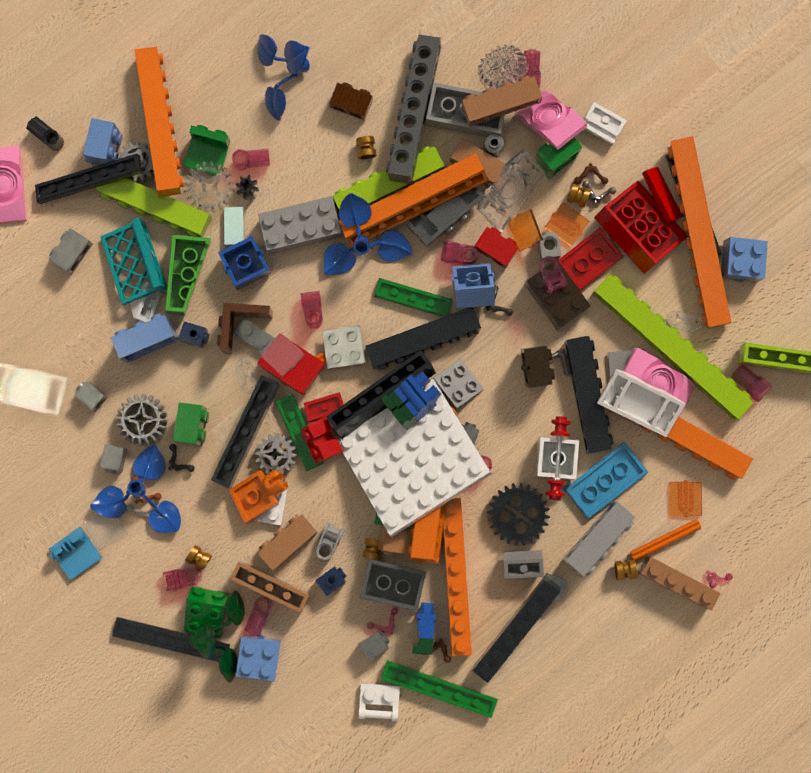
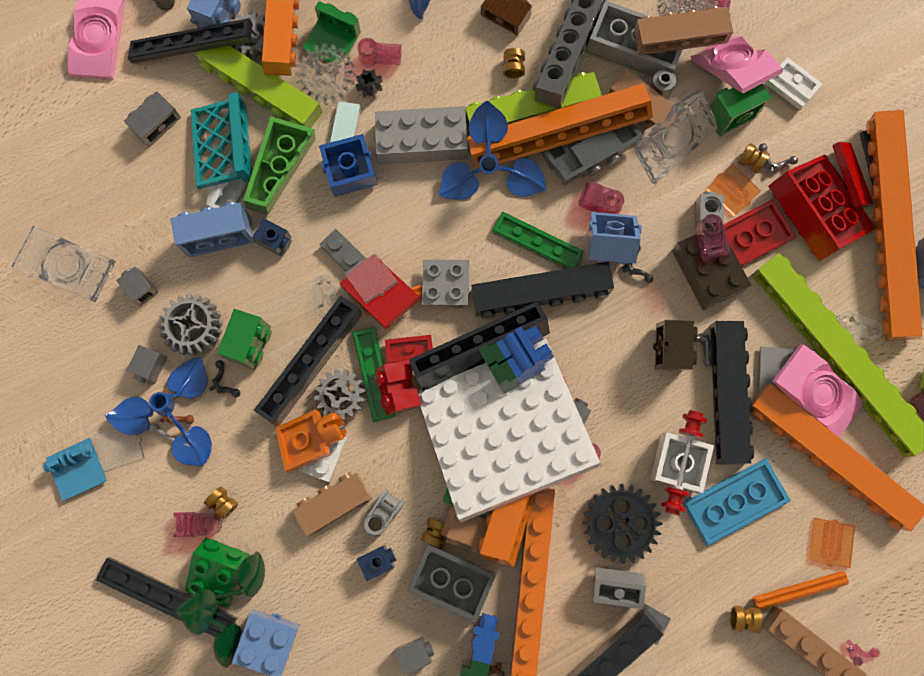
camera: 15 degrees right, 5 degrees down
(226, 321) = (314, 226): reddish brown bracket -> none
(258, 617) = (278, 590): clear pink piece -> none
(270, 586) = (299, 556): medium nougat brick -> none
(312, 306) = (417, 230): clear pink piece -> none
(370, 625) = (433, 637): clear pink piece -> none
(458, 383) = (574, 351): light grey hinge -> none
(496, 247) = (647, 200): red brick -> none
(525, 230) = (684, 186): clear orange piece -> none
(577, 180) = (772, 132): reddish brown piece -> none
(598, 539) = (720, 574): light grey brick -> none
(641, 402) = (800, 412): white slope -> none

